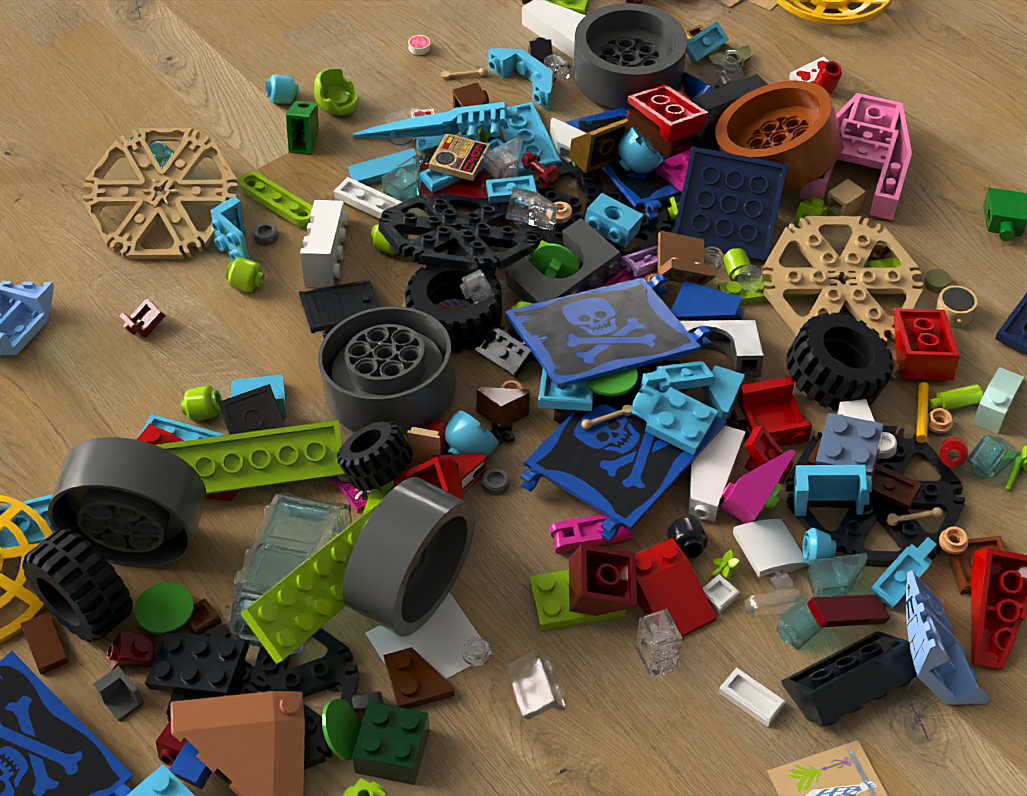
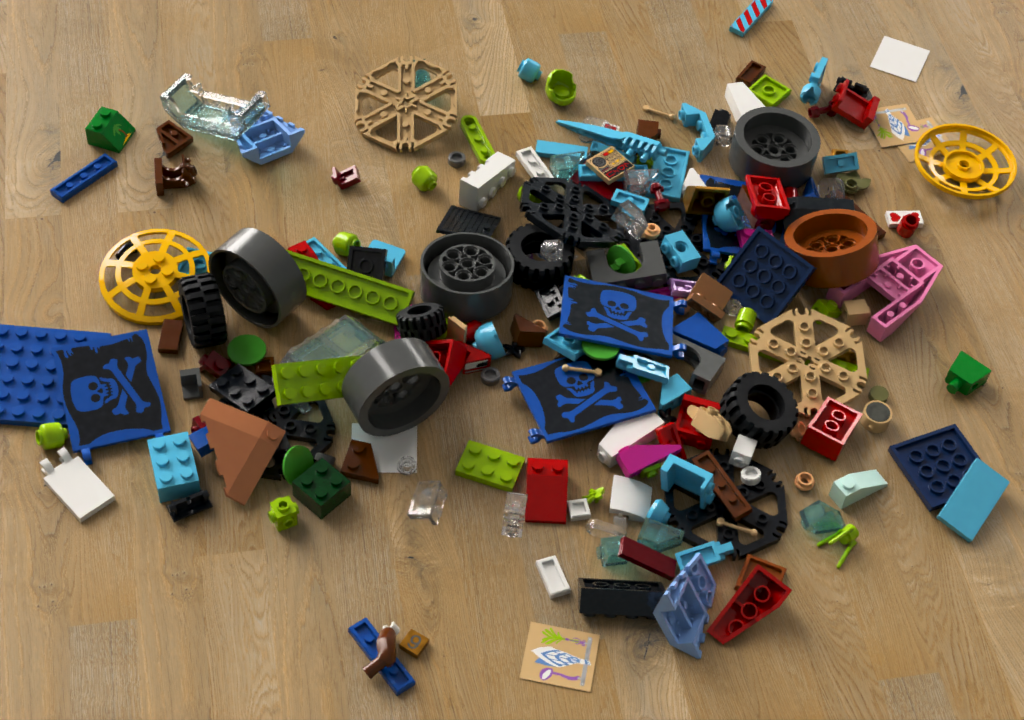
camera: 25 degrees right, 0 degrees up
(230, 228) = (434, 144): medium azure bracket -> none
(299, 119) = (524, 100): green torso -> none
(419, 45) = (642, 80): tile -> none
(585, 531) = (519, 433): dark pink plate -> none
(601, 580) = (505, 461): dark red slope -> none
(674, 417) = (622, 390): medium azure plate -> none
(688, 535) = (581, 466): black head -> none
(748, 283) = (743, 330): clear tile -> none
(797, 405) = (709, 422): none -> tan hinge
(850, 442) = (721, 460): sand blue brick -> none
(922, 412) = (796, 470): yellow bar -> none
(953, 534) = (750, 549): light nougat plate -> none
(954, 443) = (794, 502): red brick -> none
(957, 398) = (826, 472): lime cylinder -> none

